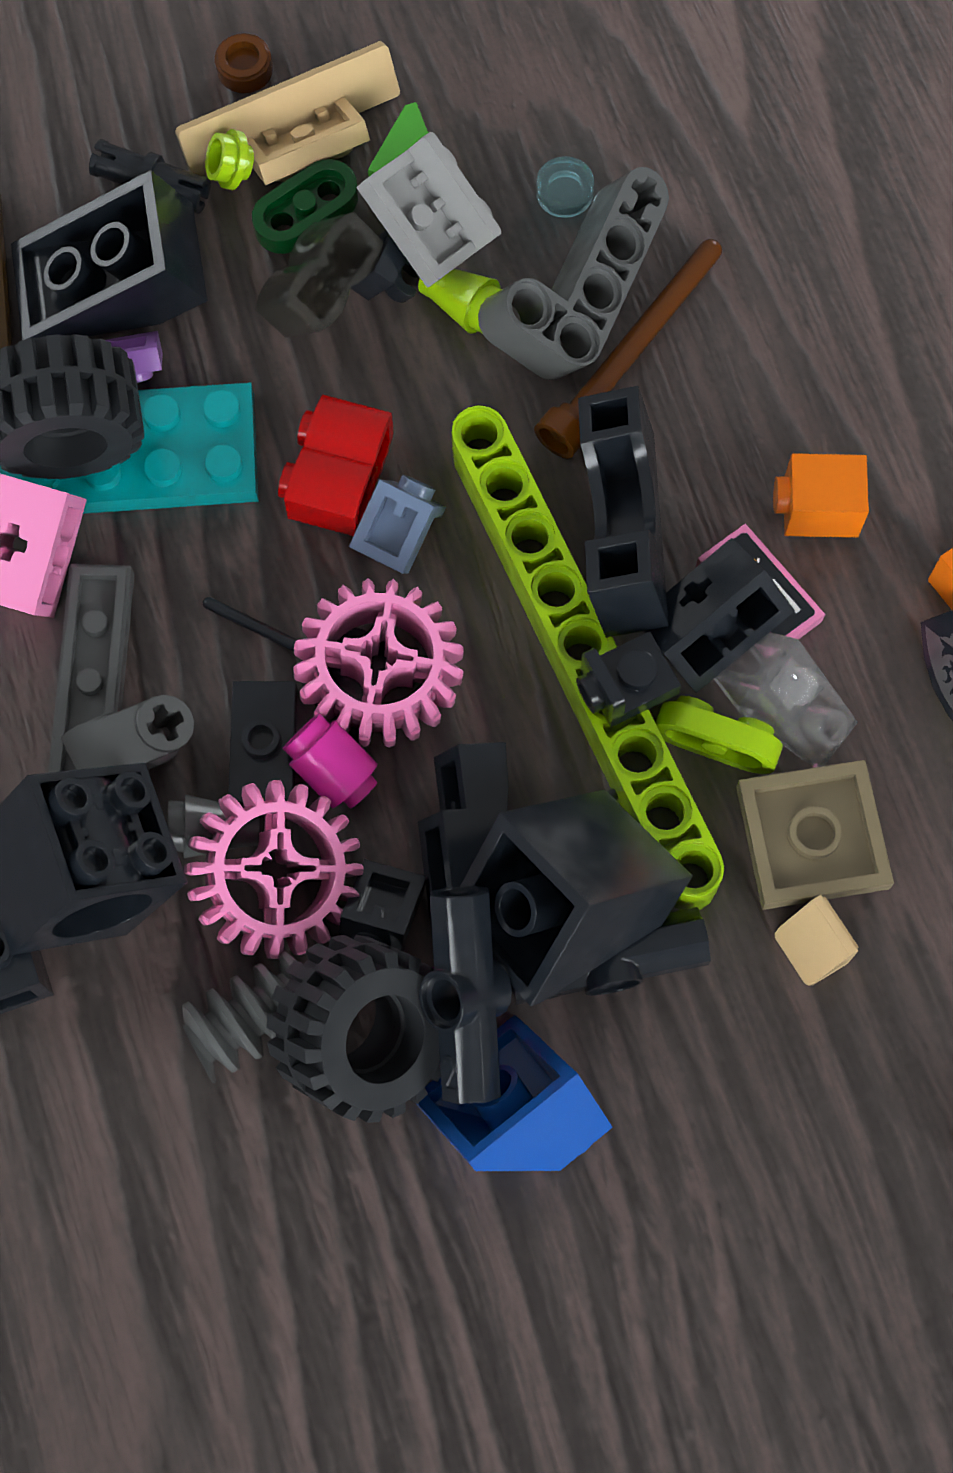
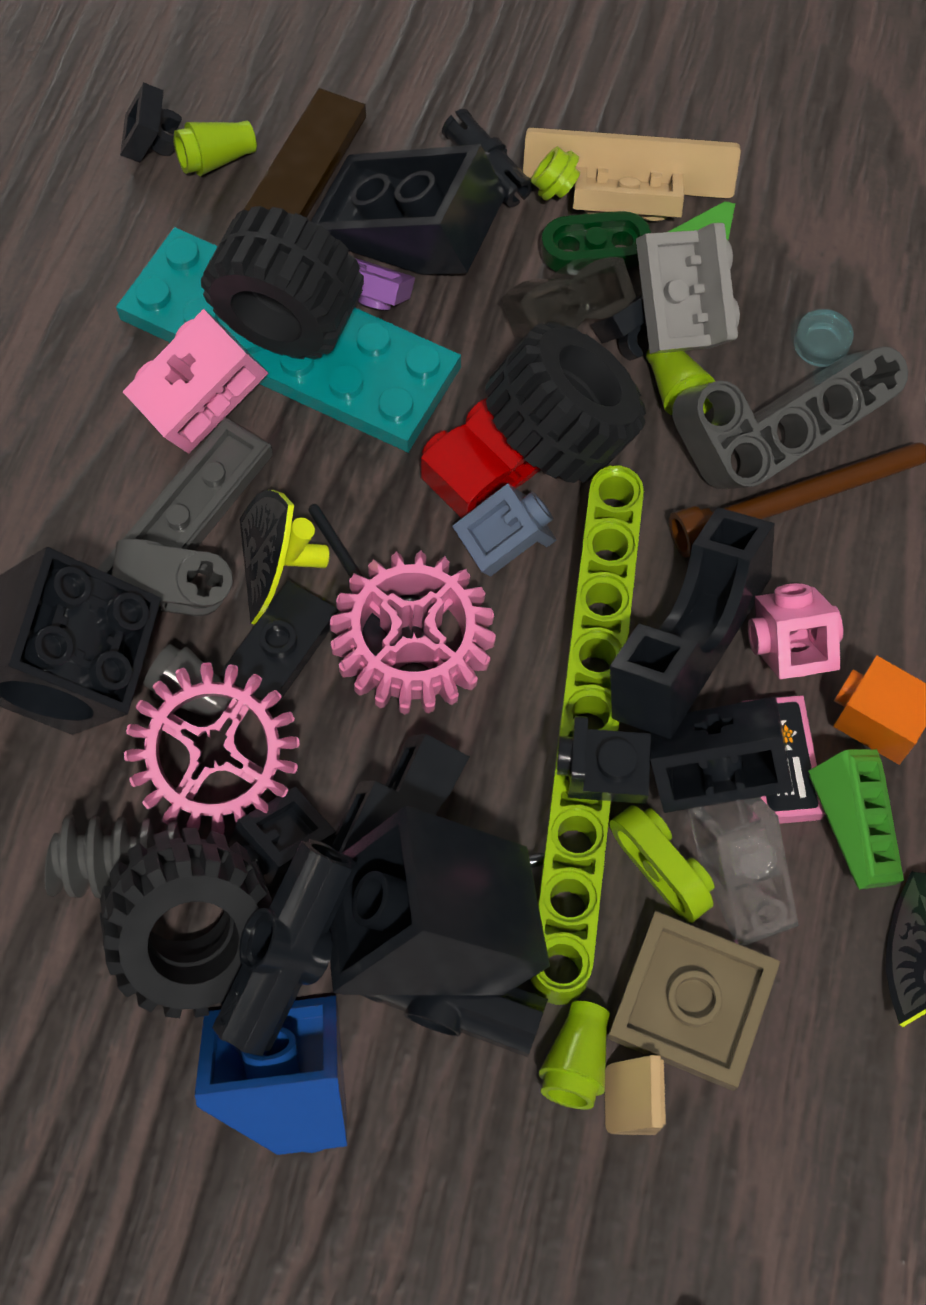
camera: 30 degrees right, 5 degrees down
(198, 655) = (274, 542): none -> shield
(243, 63) = (620, 110): reddish brown tile -> none
(331, 762) = (319, 690): dark pink brick -> none
(385, 376) = (565, 402): none -> black tyre
(709, 471) = (796, 631): none -> bright pink brick
(750, 940) = (577, 1059): none -> lime cone
(852, 597) = (860, 815): none -> bright green slope

